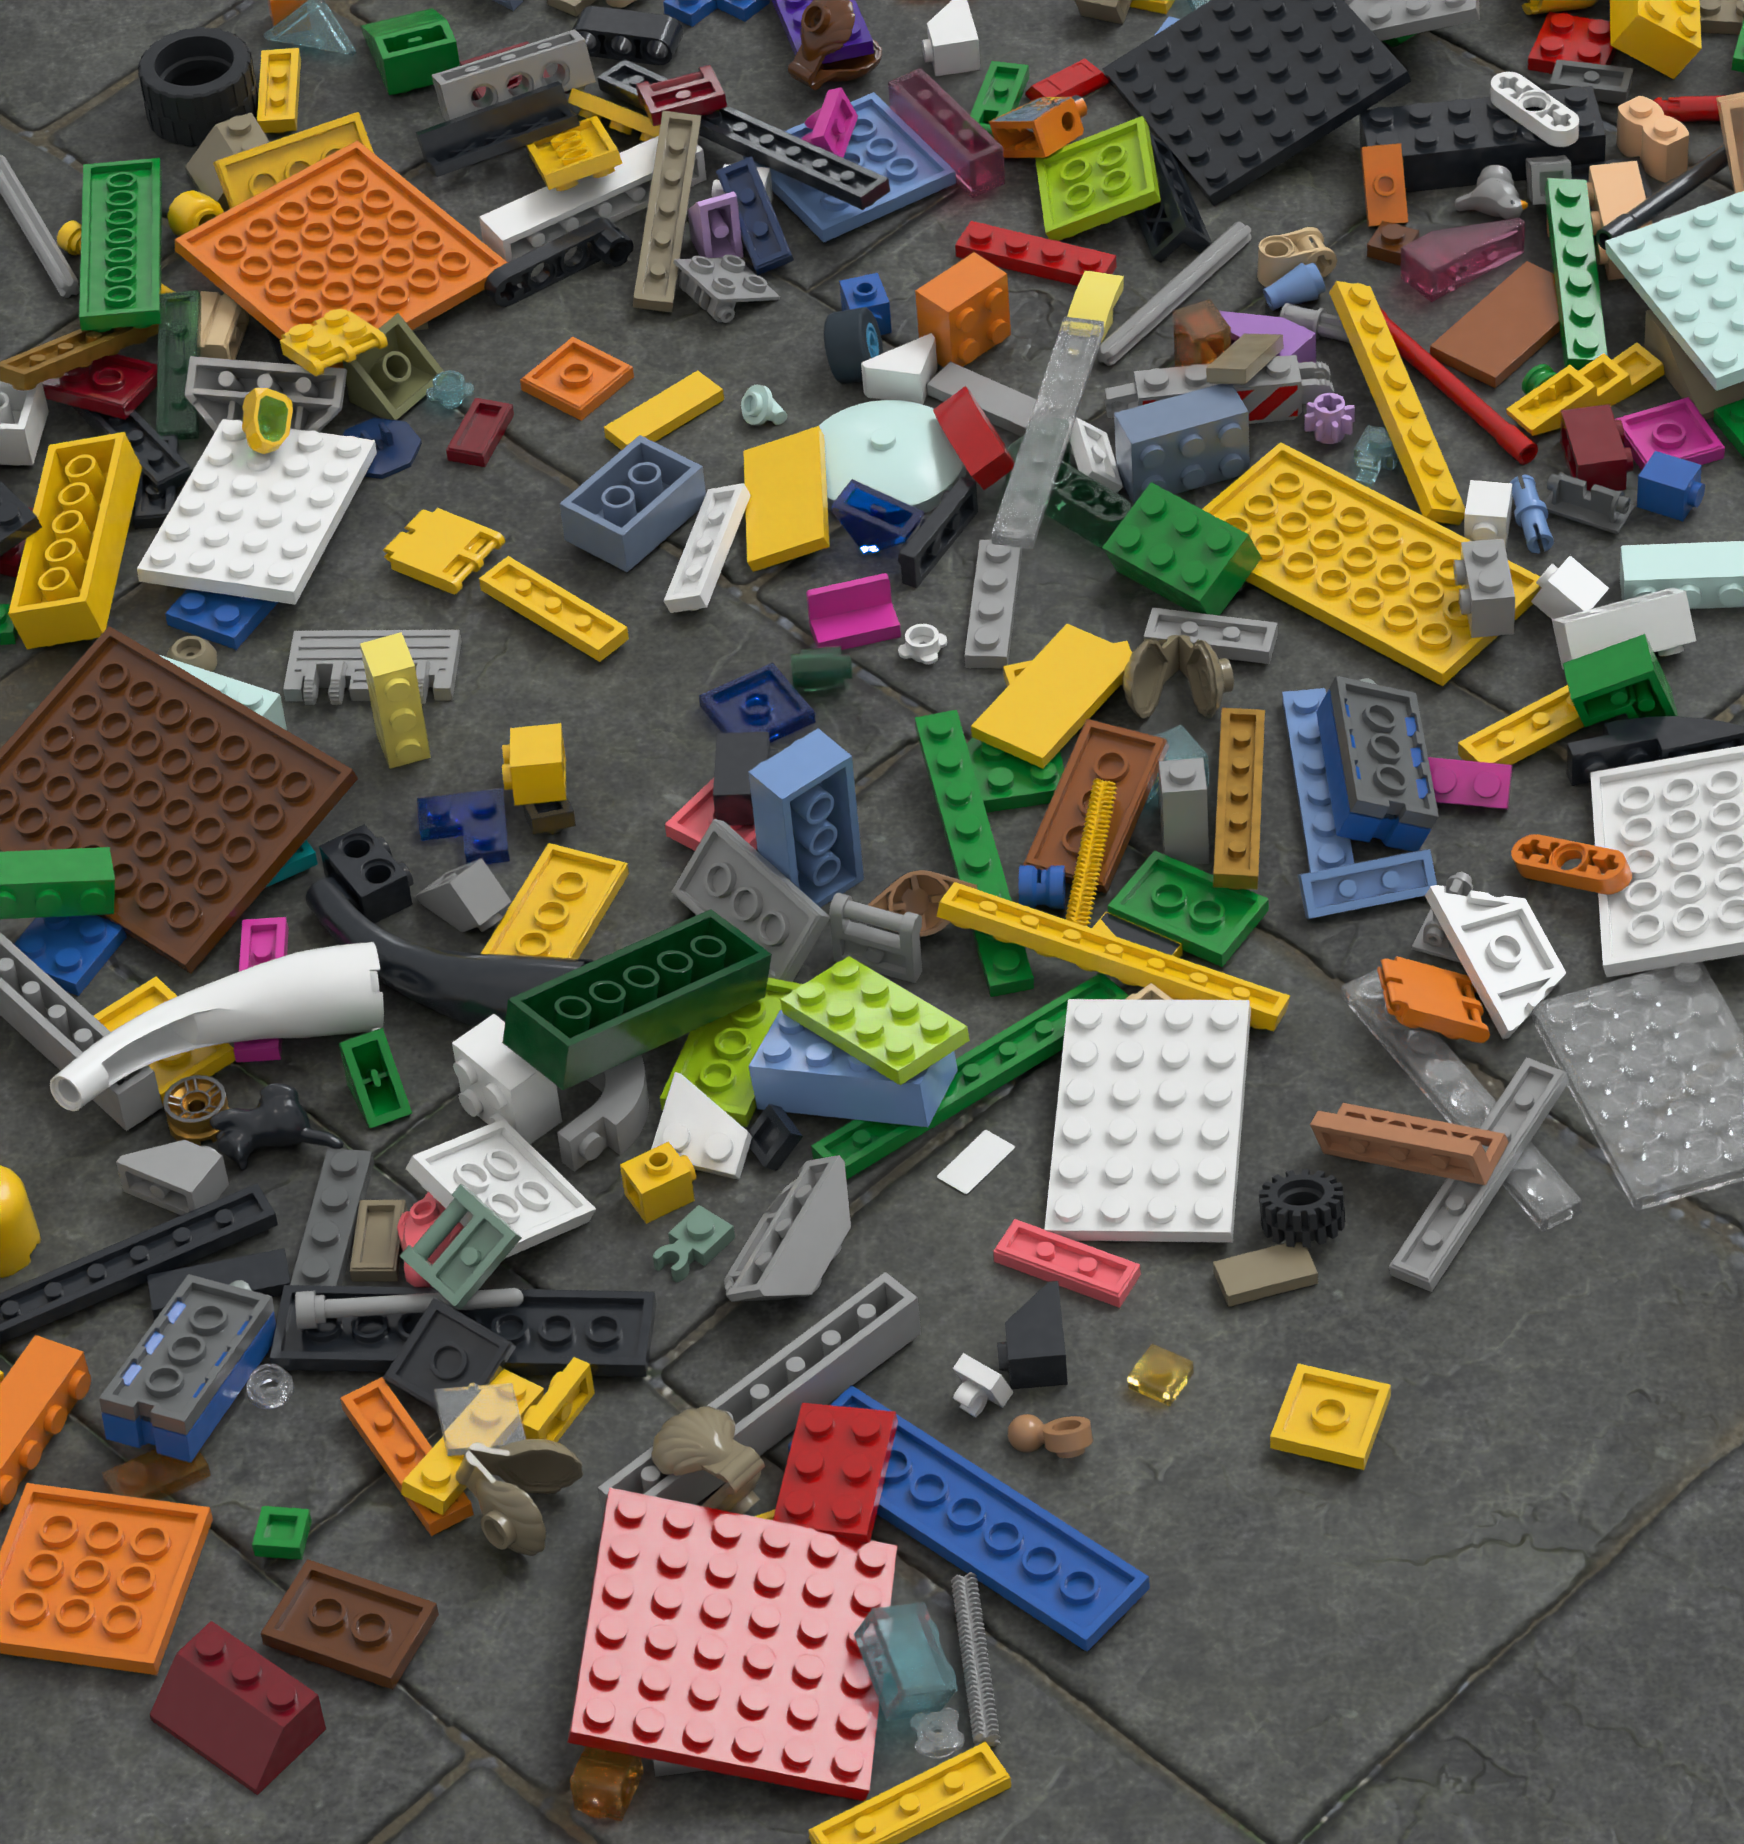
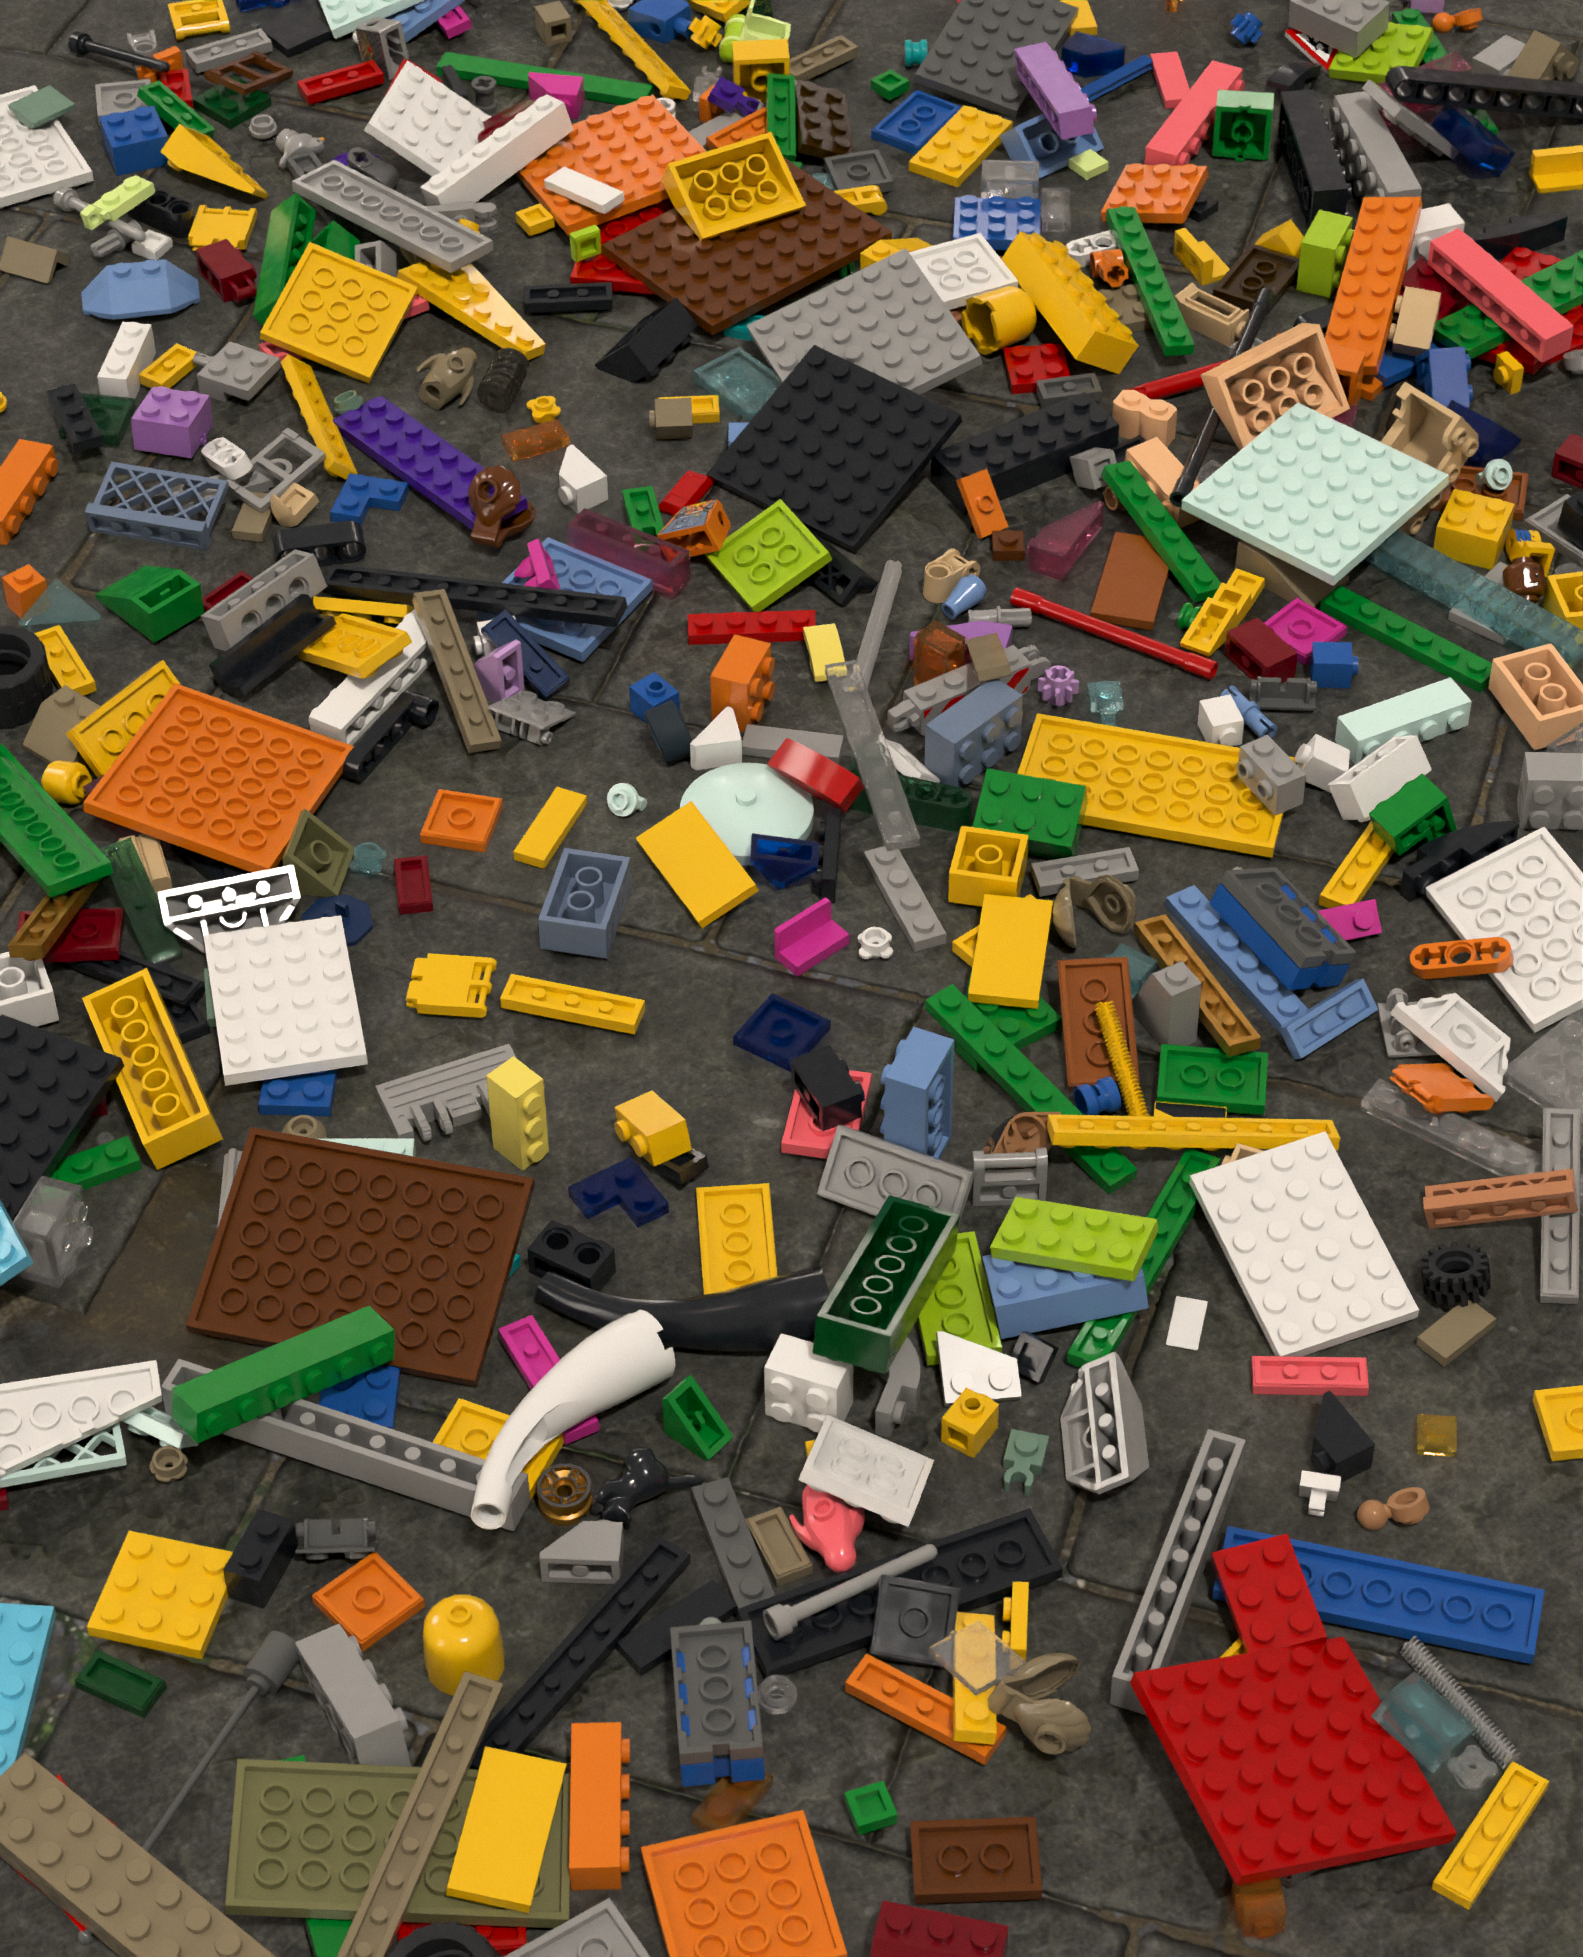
camera: 30 degrees left, 0 degrees up
(266, 419) = (255, 924): rock -> none
(331, 340) = (270, 846): yellow plate -> none
(466, 897) = (663, 1250): light grey slope -> none
(469, 1256) = (893, 1531): sand green plate -> none
(688, 94) = (414, 575): dark red plate -> none
(705, 1441) = (1174, 1613): dark tan animal -> none
(707, 548) = (662, 920): white plate -> none
(821, 668) = (814, 985): clear green brick -> none
(1096, 593) = (987, 864): none -> yellow brick
(1397, 403) = (1102, 659): yellow plate -> none
(1493, 195) = (1060, 490): light grey animal -> none
(1553, 124) = (1081, 425): white beam -> none

